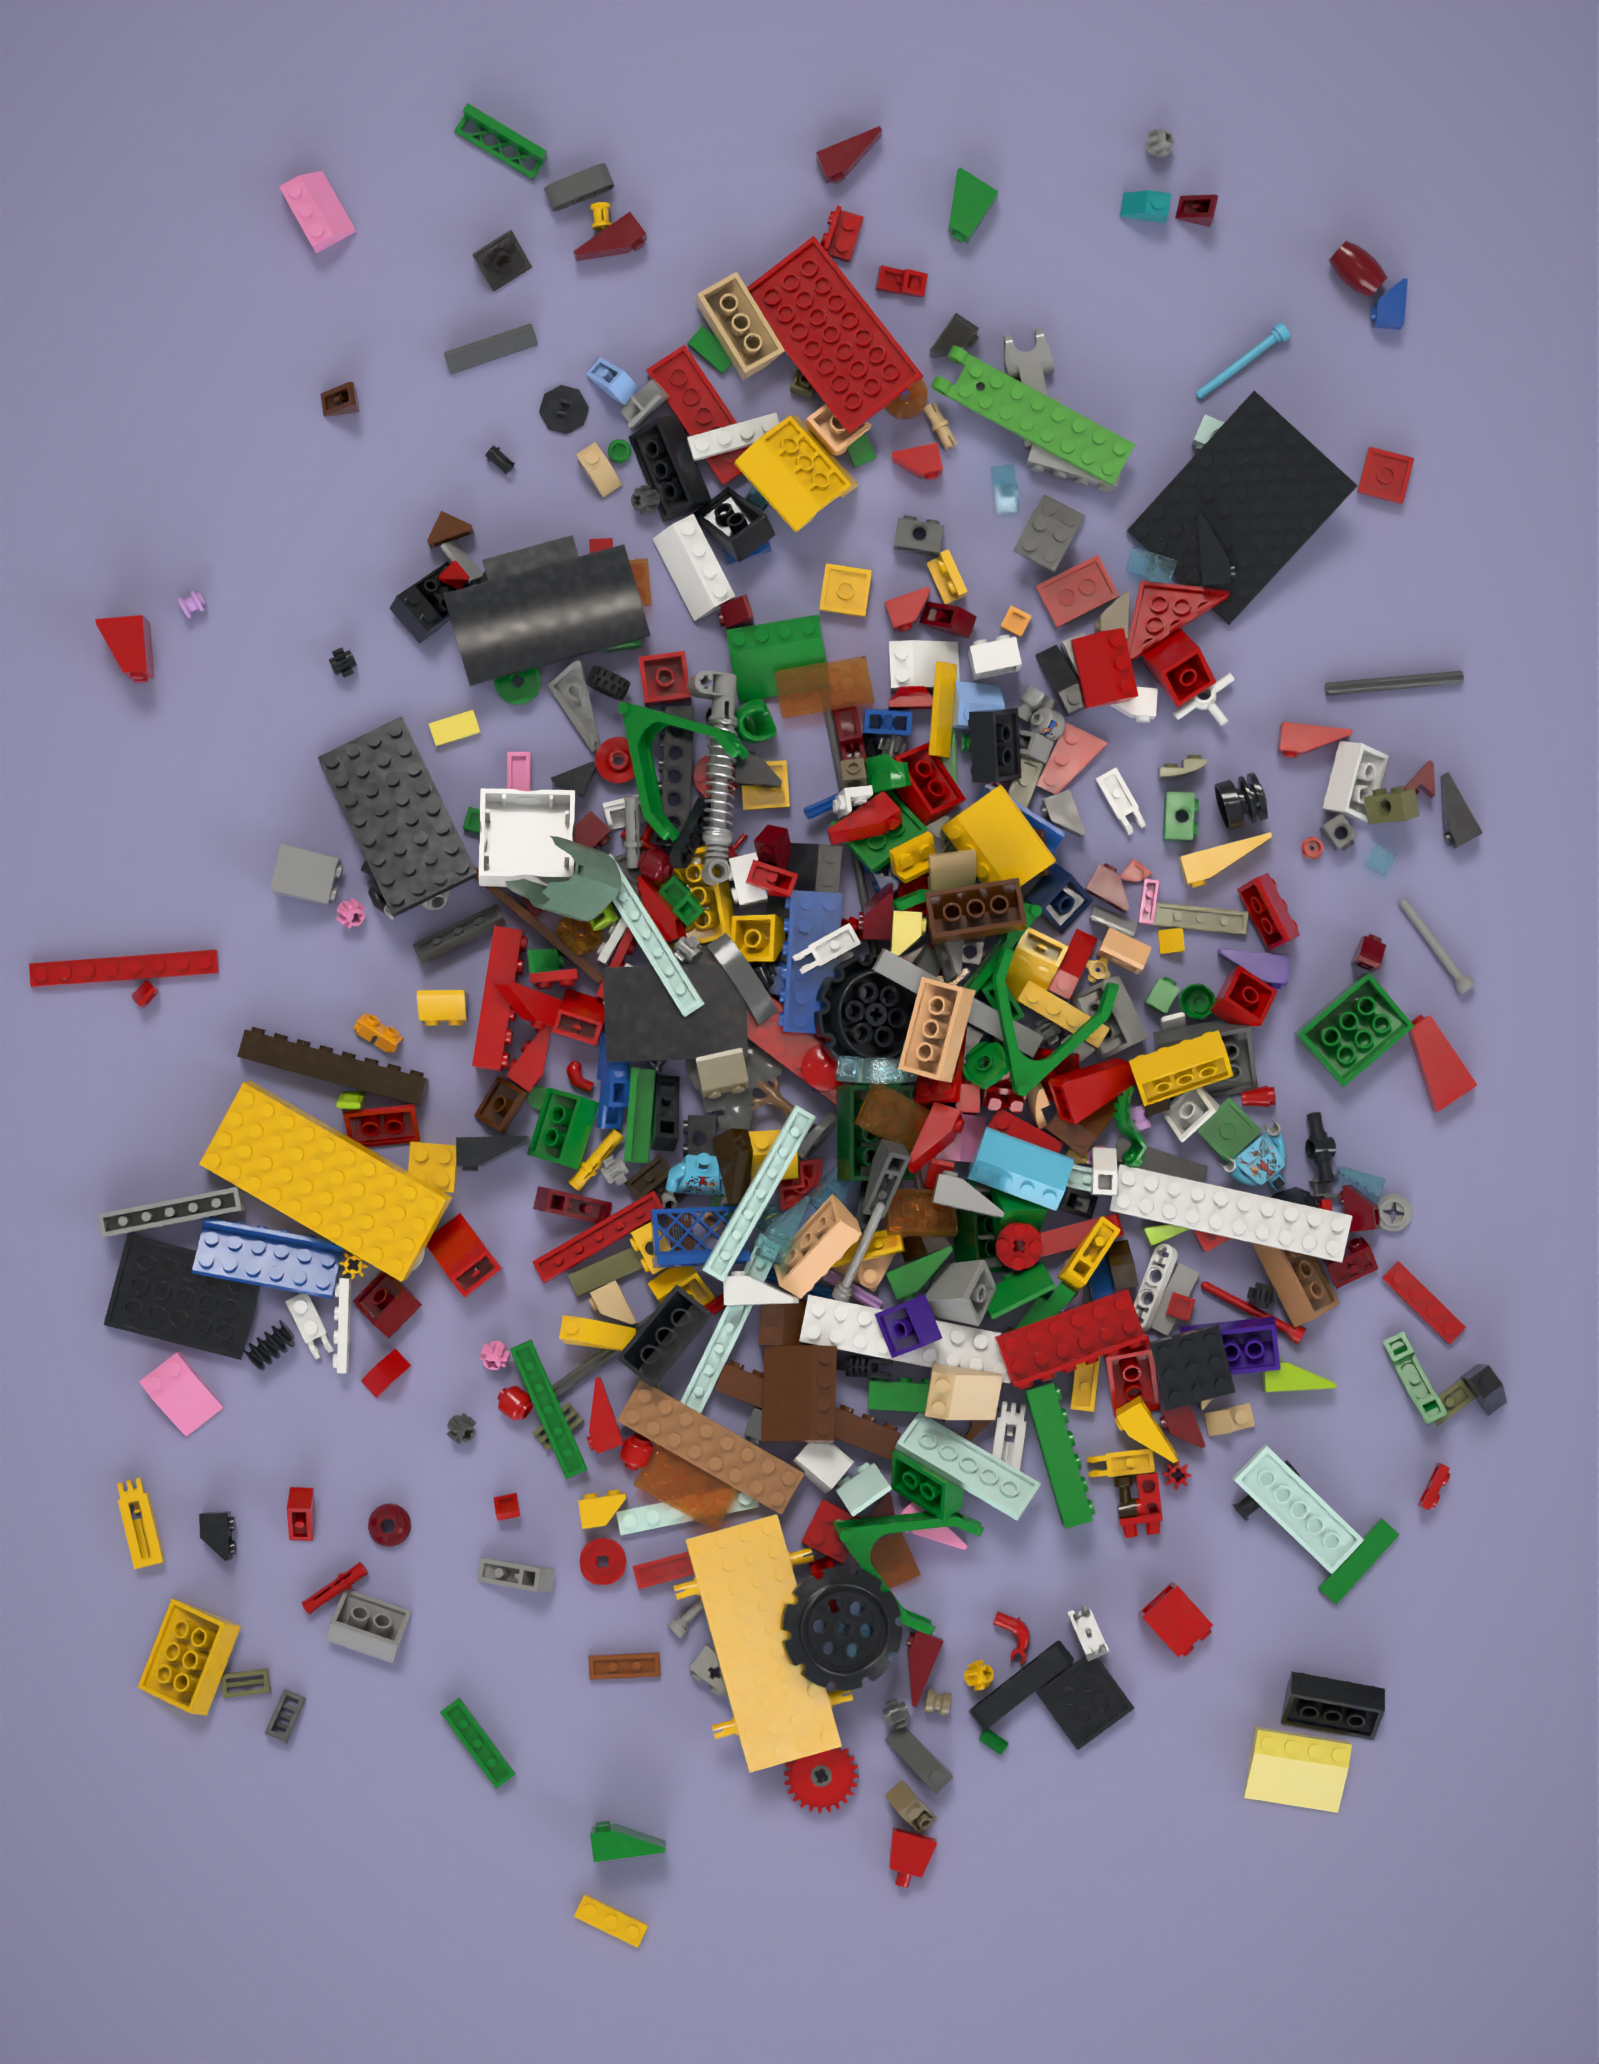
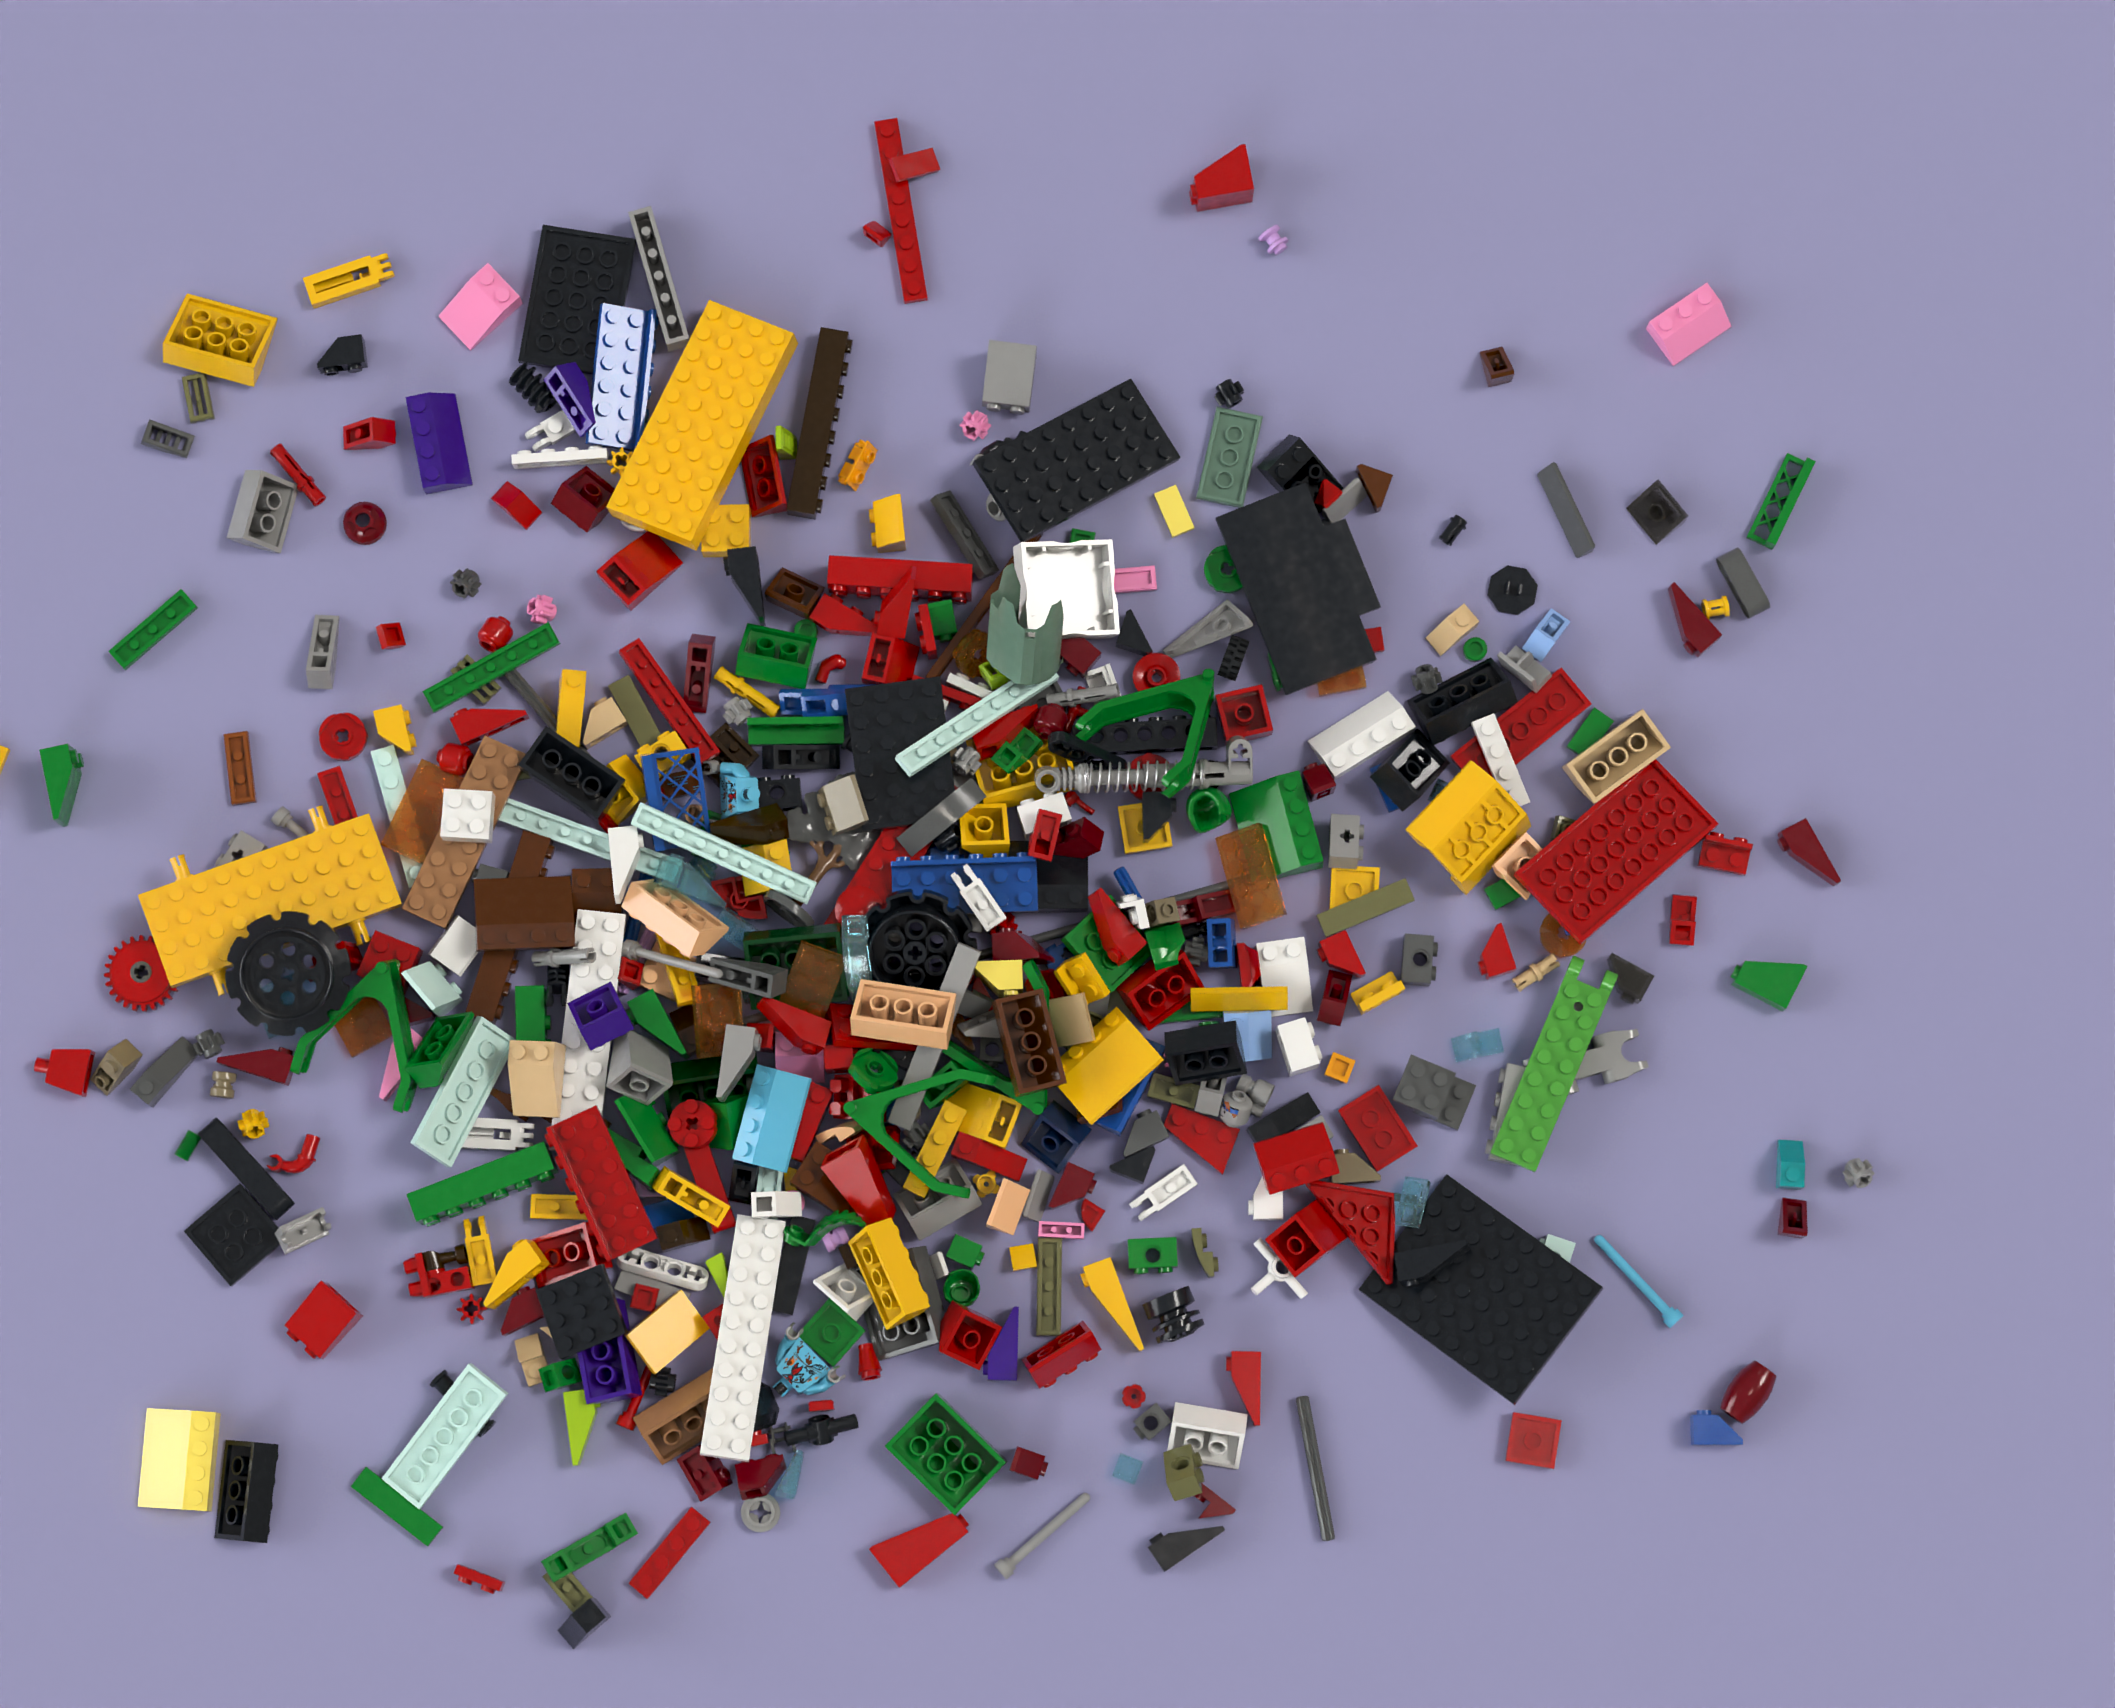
camera: 90 degrees right, 5 degrees down
(79, 950) = (914, 165): none -> red tile
(284, 1306) = (572, 395): none -> dark purple slope
(315, 1444) = (439, 441): none -> dark purple slope
(405, 669) = (1229, 457): none -> sand green tile
(698, 1441) = (467, 816): none -> white brick
(809, 599) = (1342, 853): none -> light grey brick
(845, 1364) = (558, 957): none -> light grey pin
(864, 580) = (1365, 907): none -> olive tile
(864, 1295) = (630, 973): none -> red slope
(1094, 825) = (1135, 1166): none -> black slope
(1216, 1287) = (667, 1331): none -> yellow tile
(1248, 1393) = (560, 1375): none -> green brick
(1297, 1145) = (823, 1405): none -> red tile

